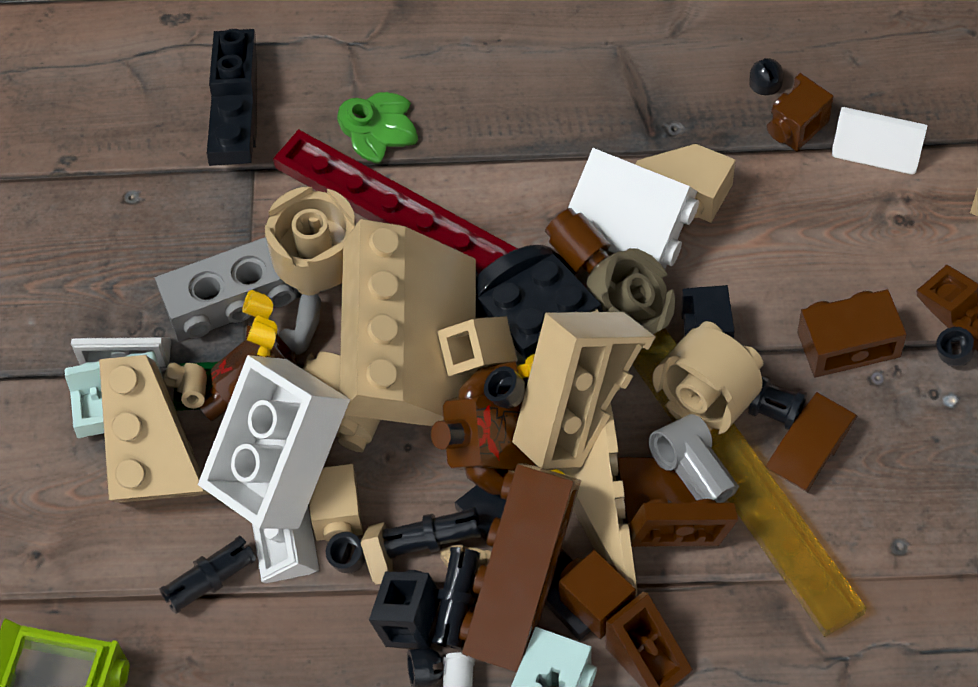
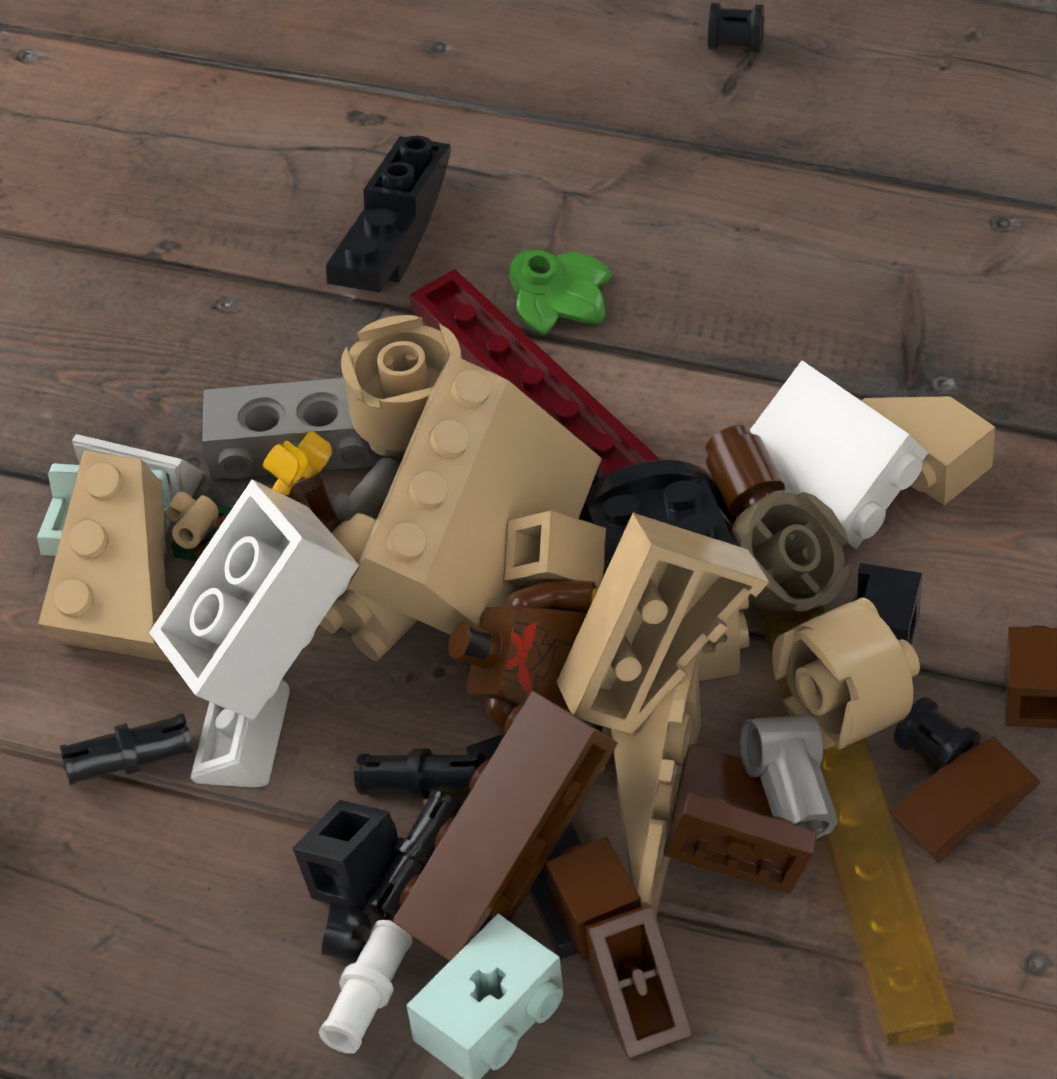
camera: 20 degrees right, 10 degrees down
(336, 503) = (315, 707): tan brick -> none
(339, 551) = (304, 769): black hinge -> none
(375, 552) = (339, 776): tan tile -> none
(508, 380) = (561, 604): black hinge -> none

